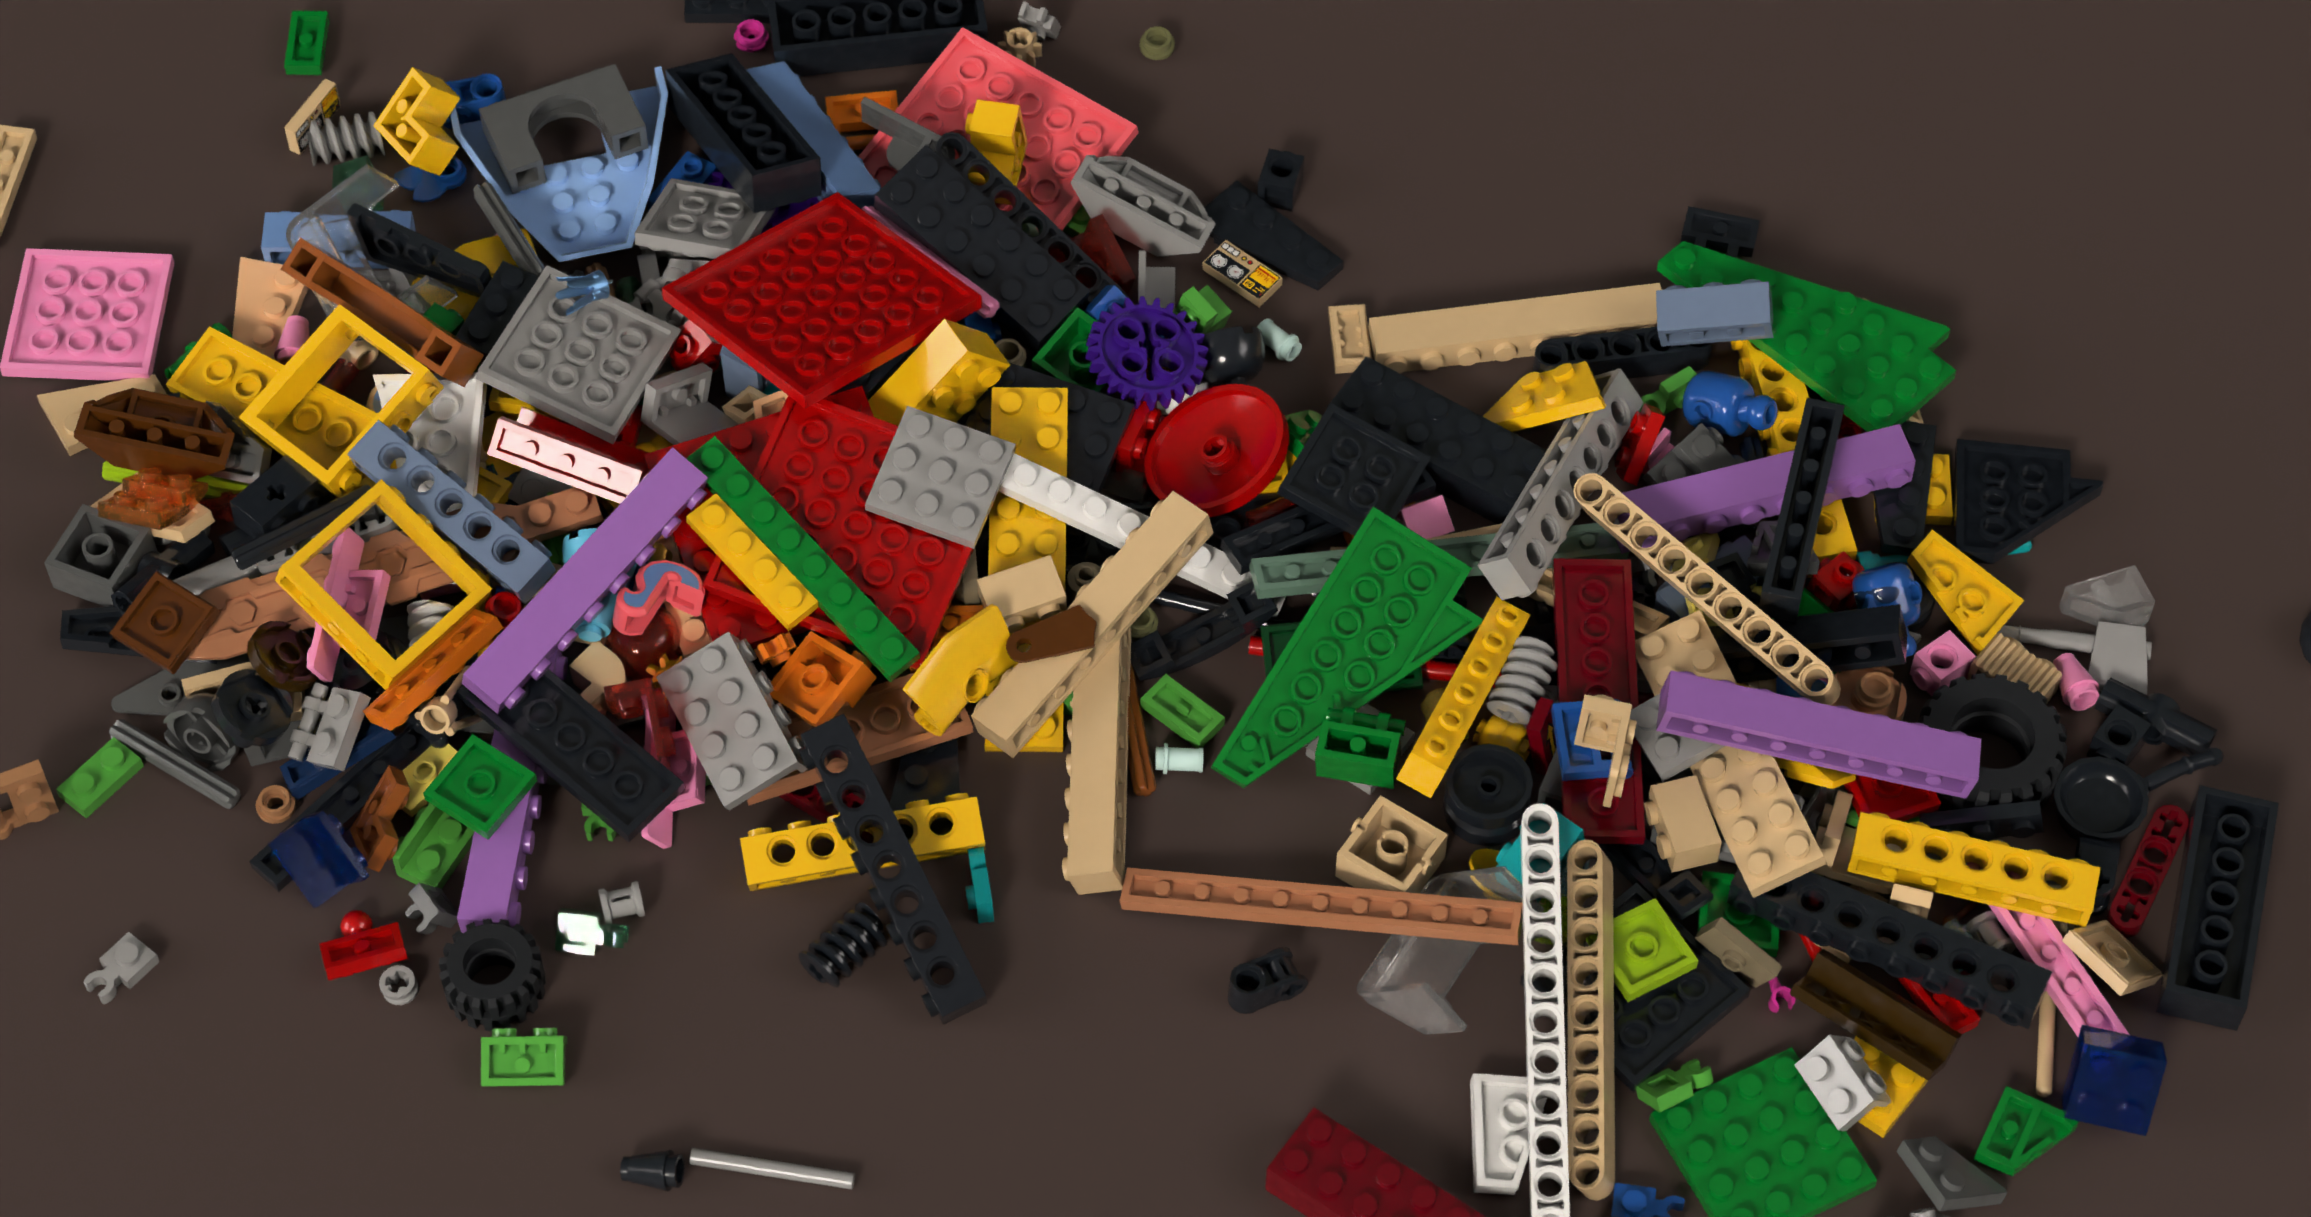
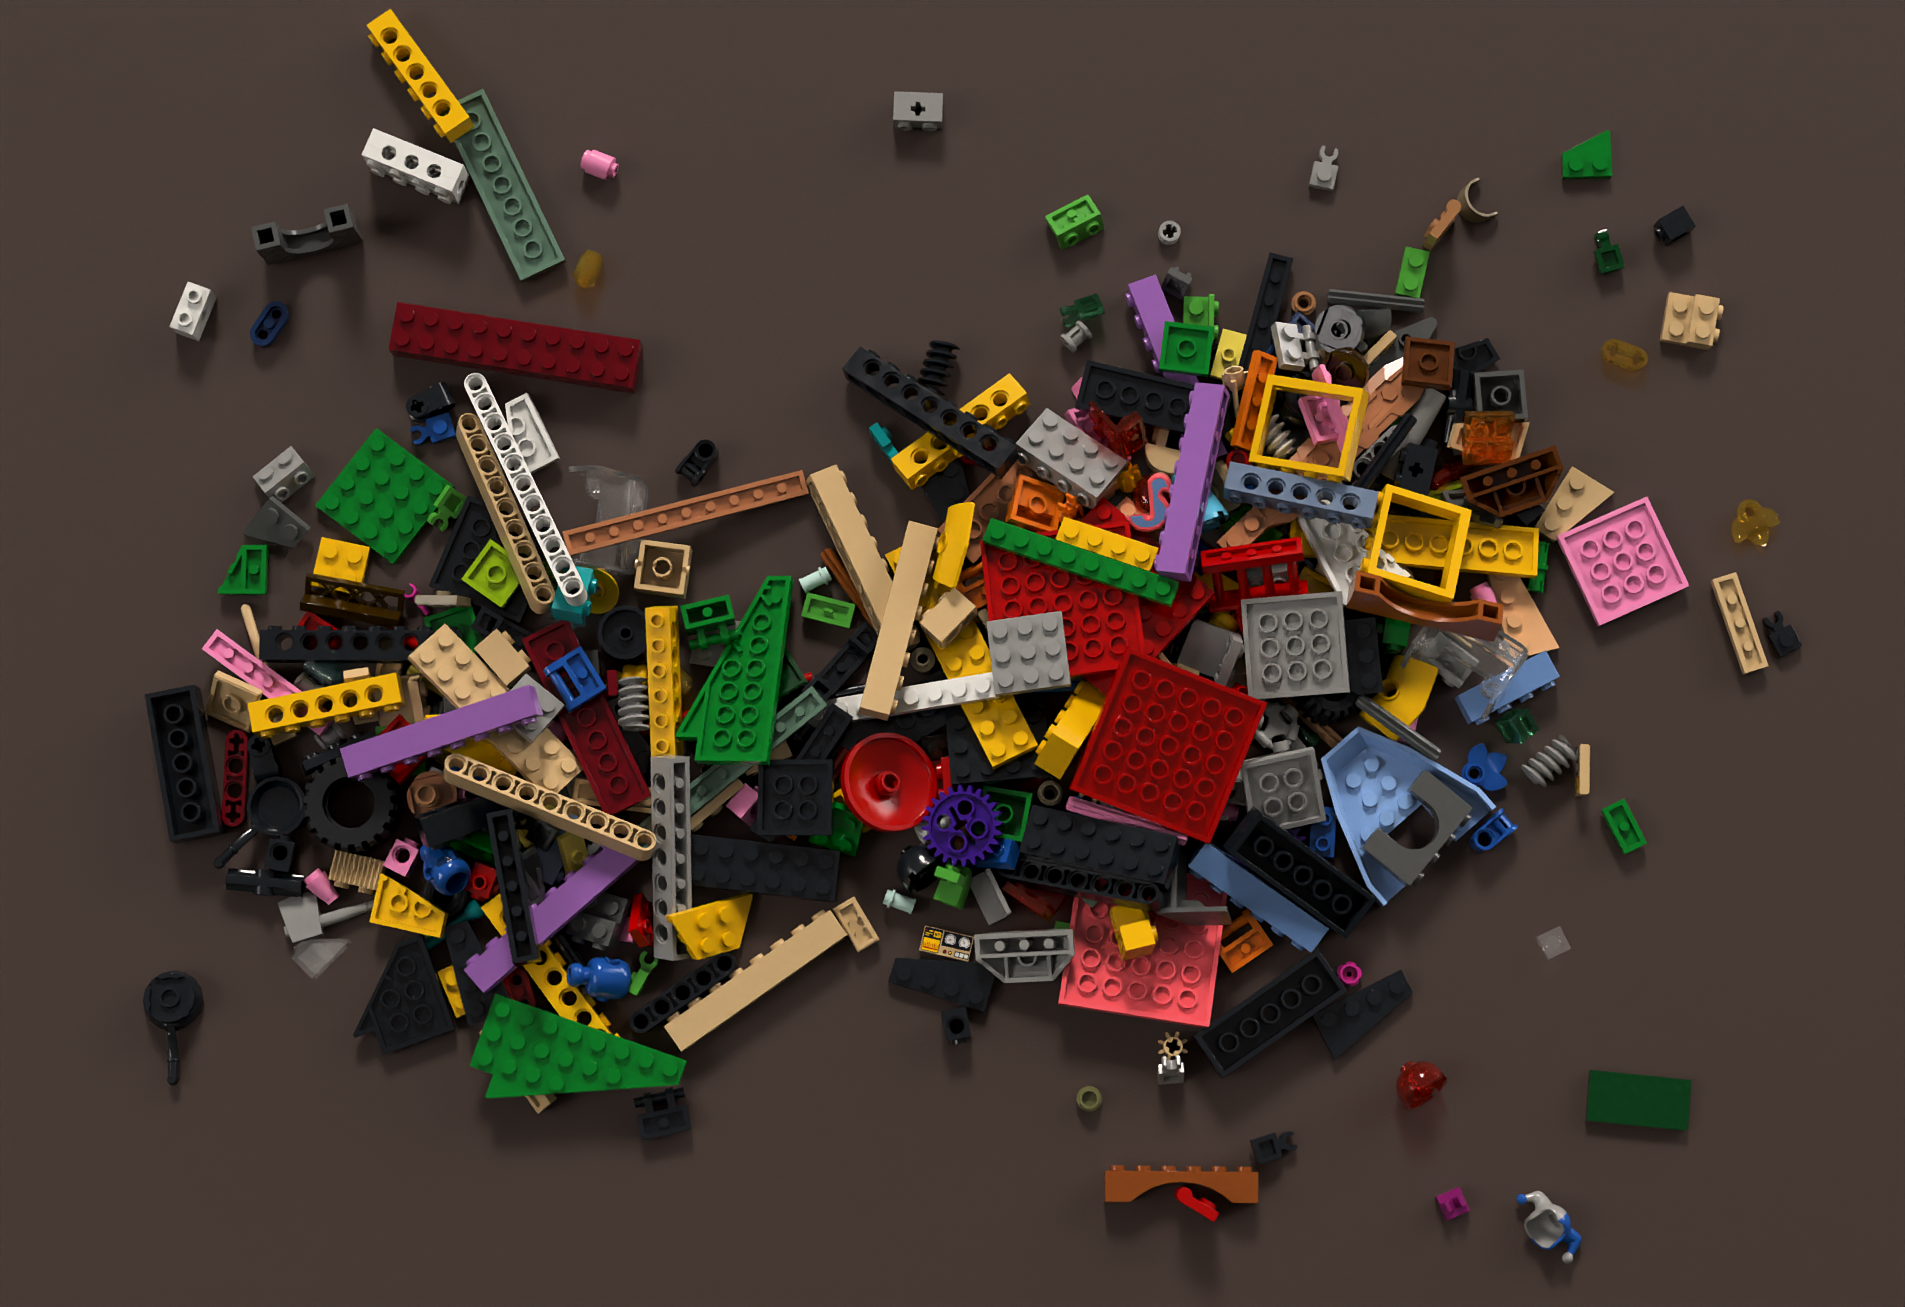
camera: 155 degrees right, 25 degrees up
(319, 857) = (1253, 272): clear blue bracket -> none
(361, 946) = (1199, 241): red plate -> none
(373, 827) = (1238, 310): dark orange plate -> none
(415, 121) = (1505, 777): yellow brick -> none
(415, 254) = (1463, 676): black wing -> none
(489, 946) = (1118, 236): black tyre -> none
(593, 286) = (1310, 685): flat silver piece -> none
(654, 1169) = (969, 193): black cone -> none
(772, 1168) = (908, 227): light grey bar -> none
(1054, 636) = (911, 591): reddish brown piece -> none
(1608, 728) = (564, 671): tan bracket -> none
(1714, 313) = (631, 1027): sand blue brick -> none
(1842, 1080) = (353, 549): bracket -> none
(2114, 1080) = (203, 615): clear blue brick -> none

